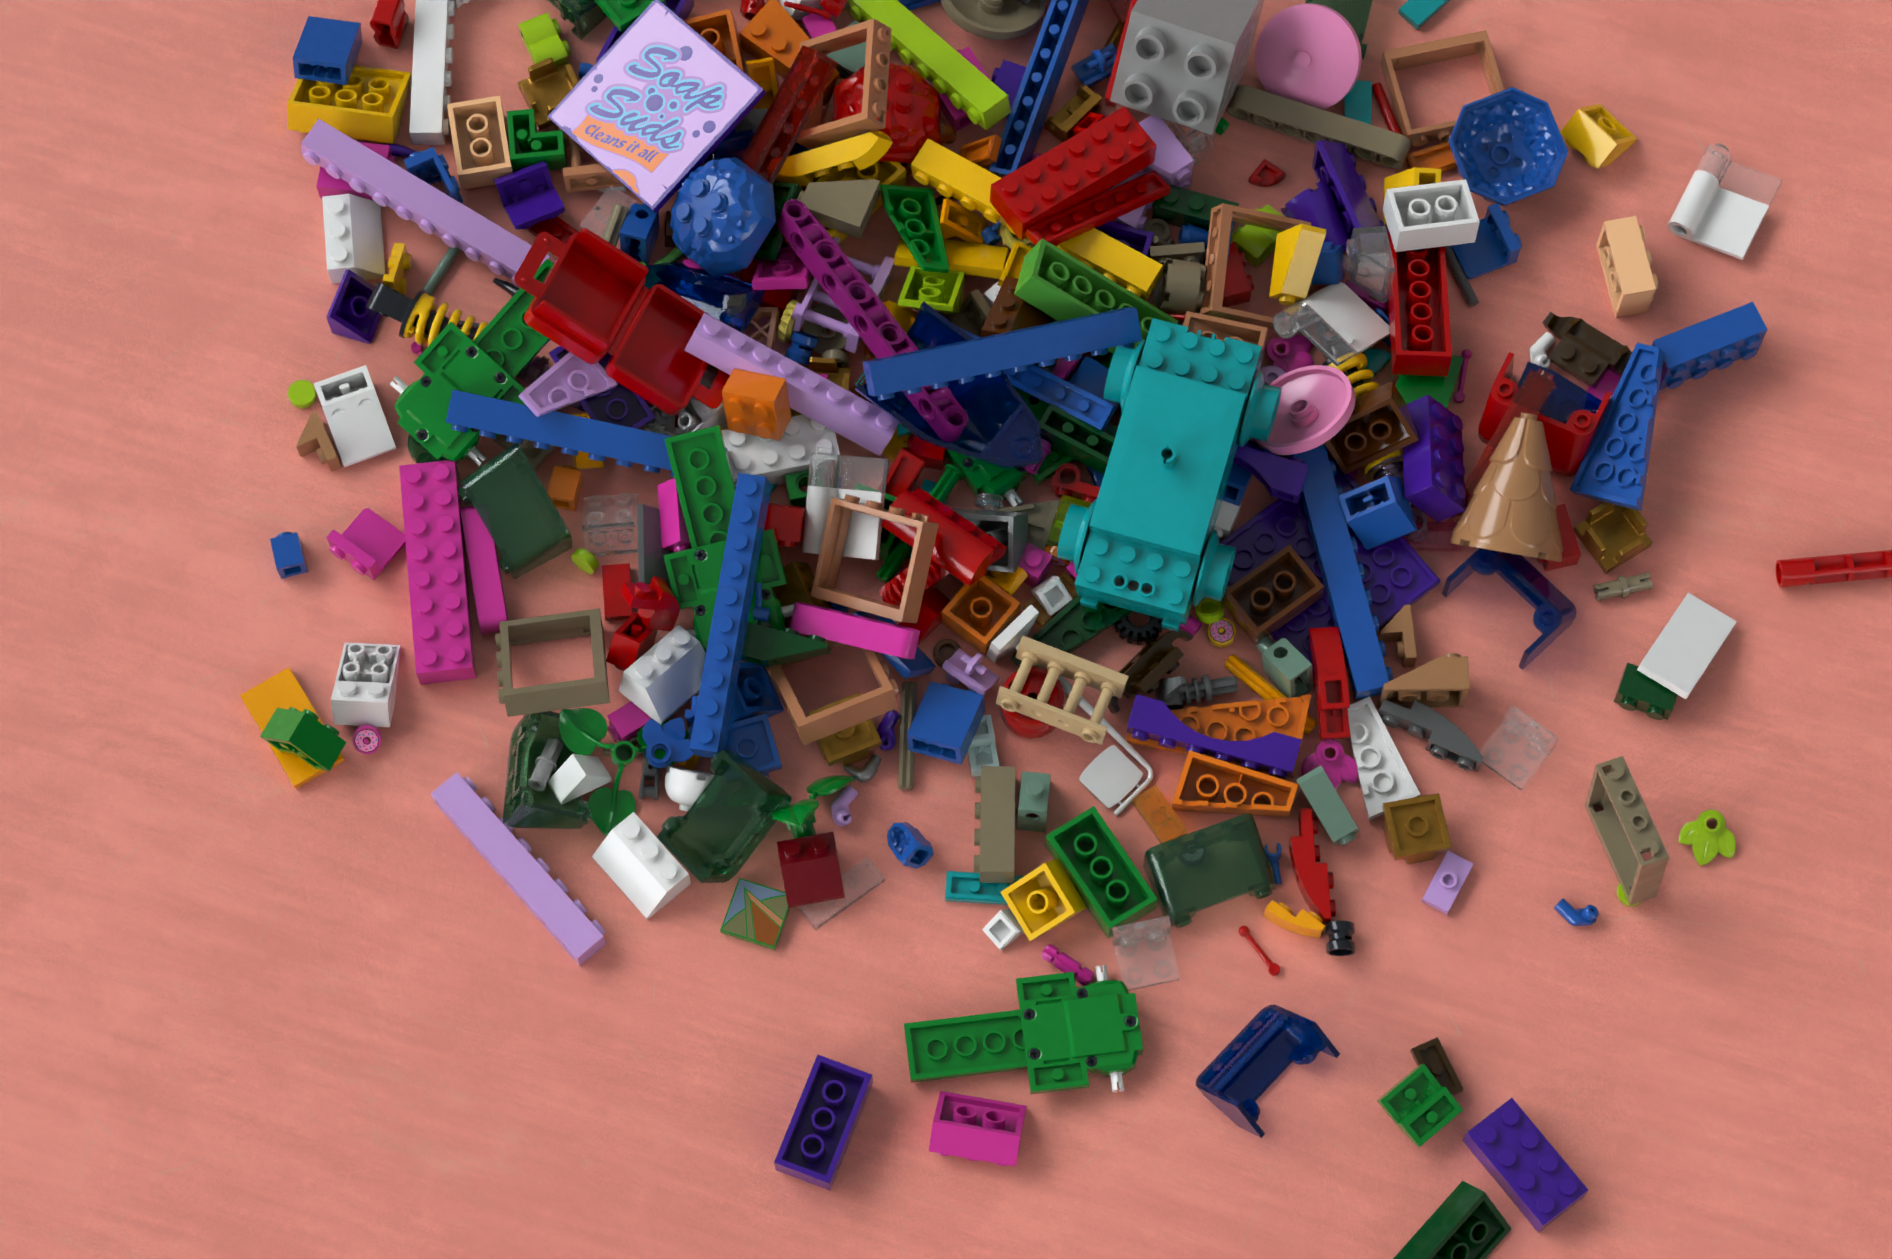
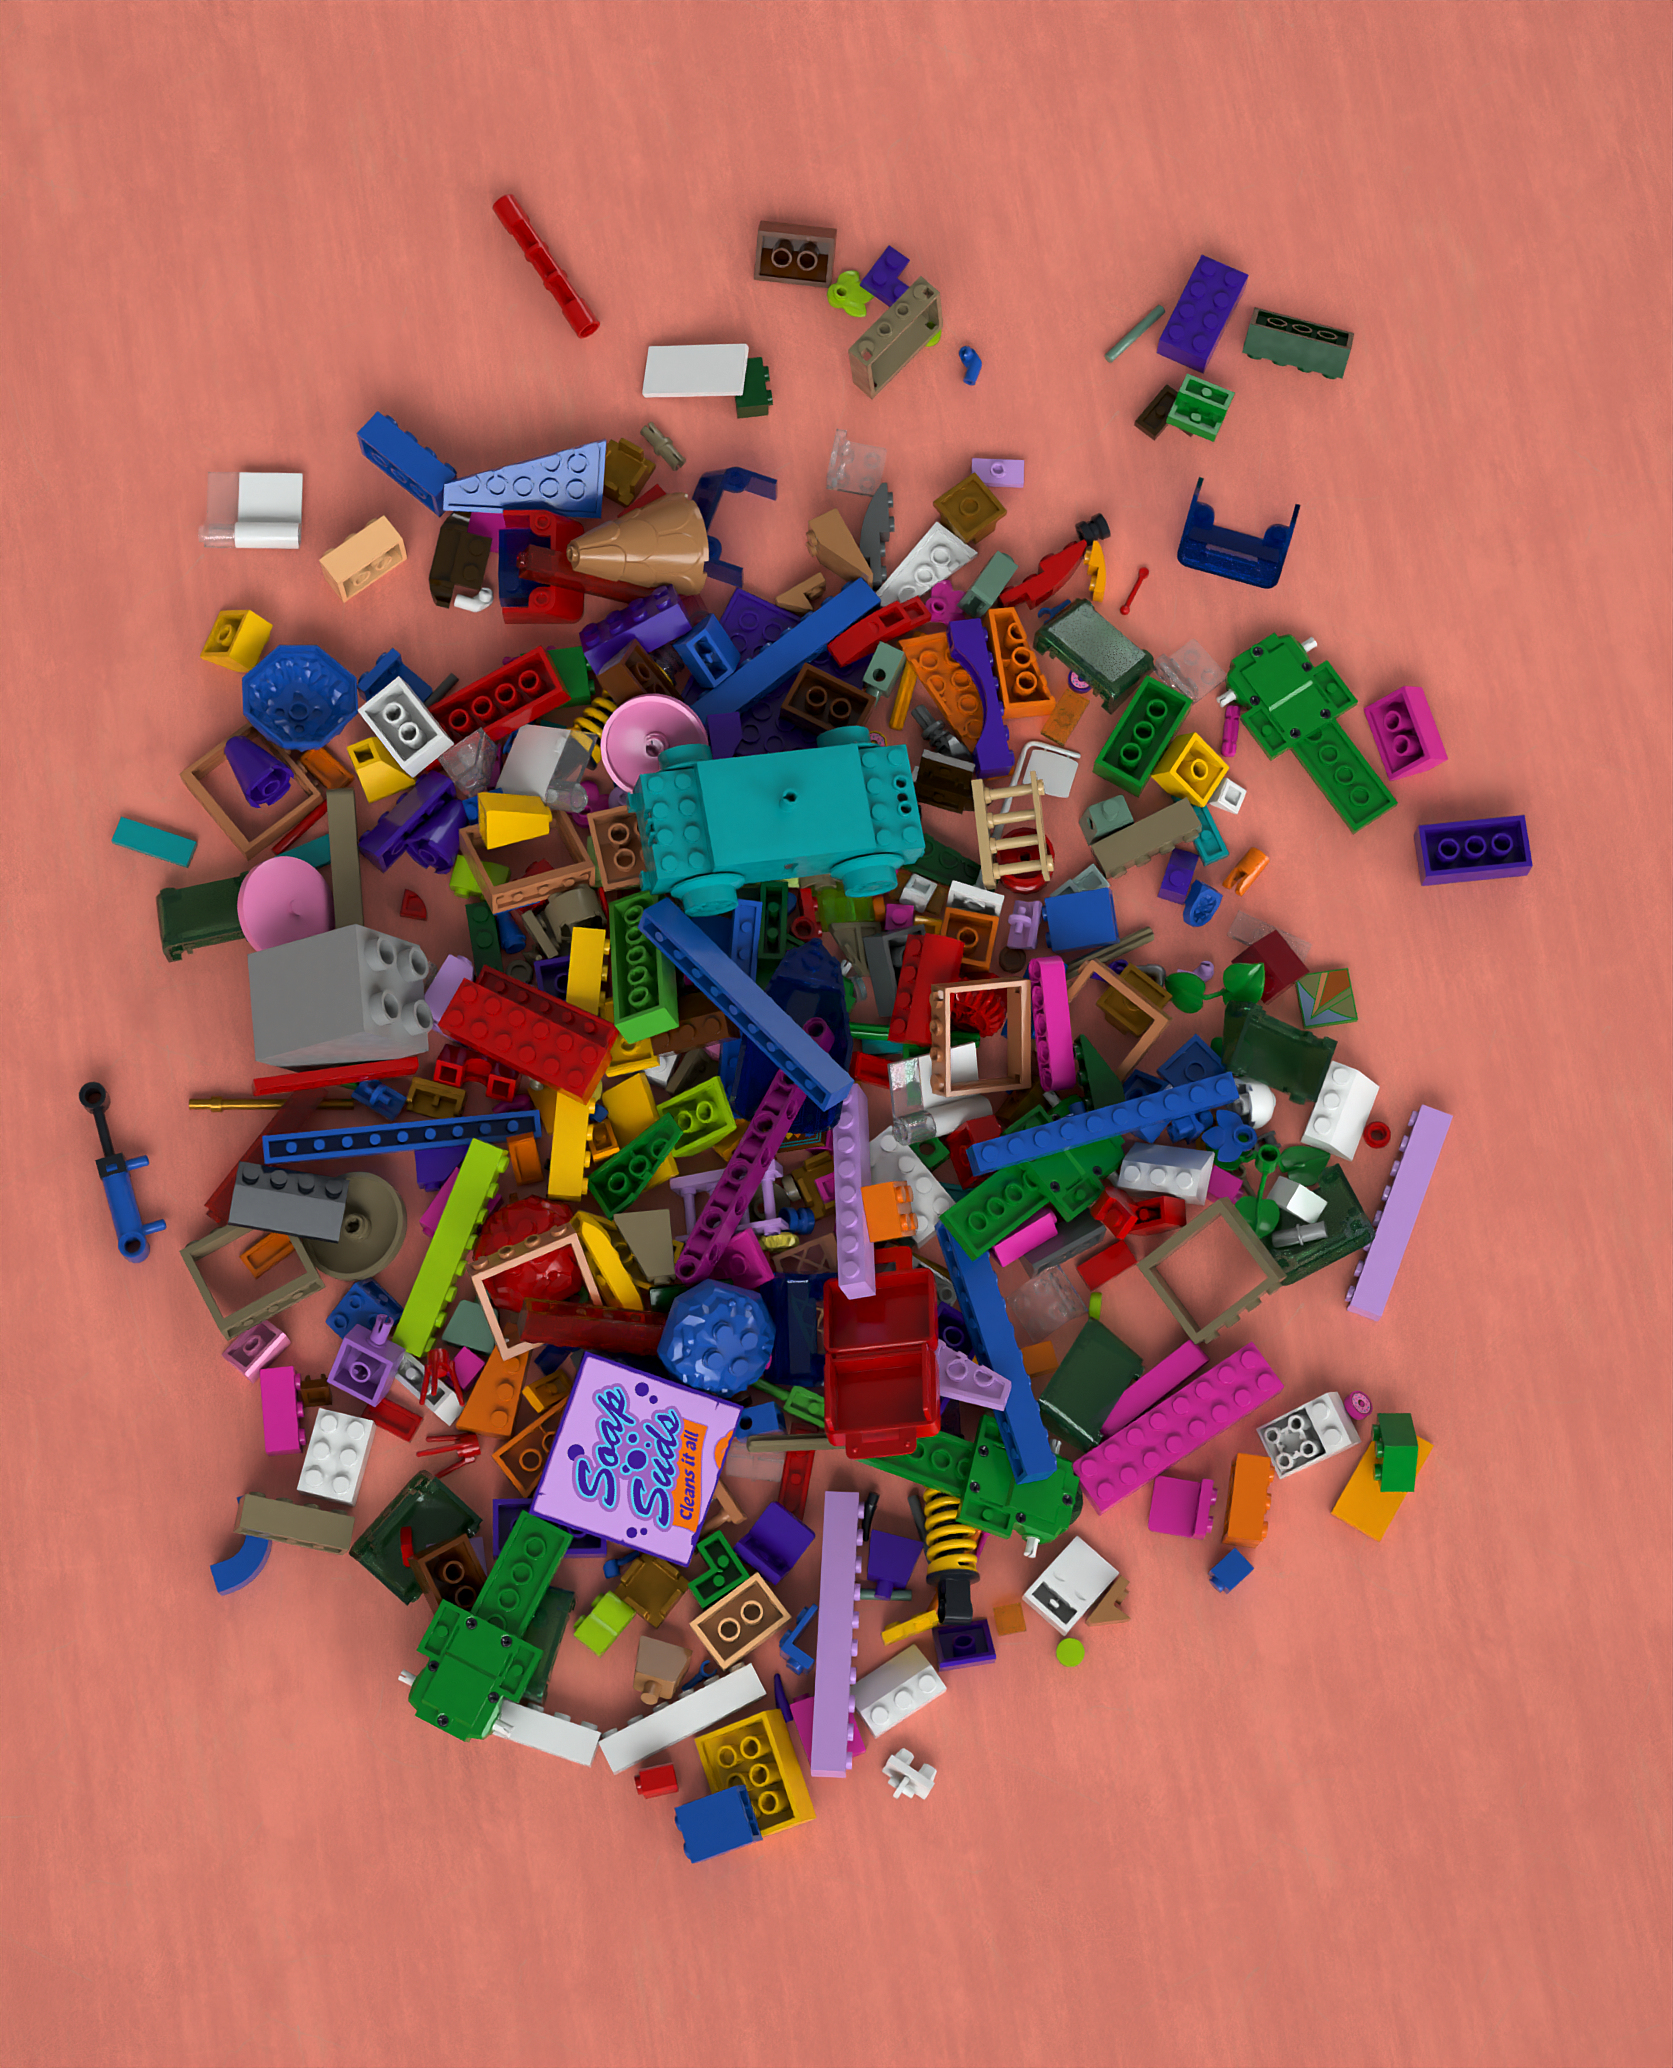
camera: 120 degrees left, 5 degrees up
(289, 211) = (907, 1779): none -> white hips
(337, 592) = (1247, 1500): none -> orange brick
(358, 356) = (1009, 1619): none -> clear yellow tile
(458, 97) = (699, 1677): none -> blue hand
(462, 284) = (891, 1562): none -> dark purple torso
(478, 62) = (659, 1669): none -> medium nougat torso
(598, 883) = (1379, 1127): none -> red plate
(919, 907) = (1248, 868): none -> orange hinge
(948, 839) = (1178, 876): none -> dark purple slope
(1453, 83) = (257, 771): none -> dark purple cone
(1537, 1092) = (1135, 333): none -> sand green bar
(1708, 872) = (883, 277): none -> dark purple plate
(1776, 802) = (795, 254): none -> reddish brown slope

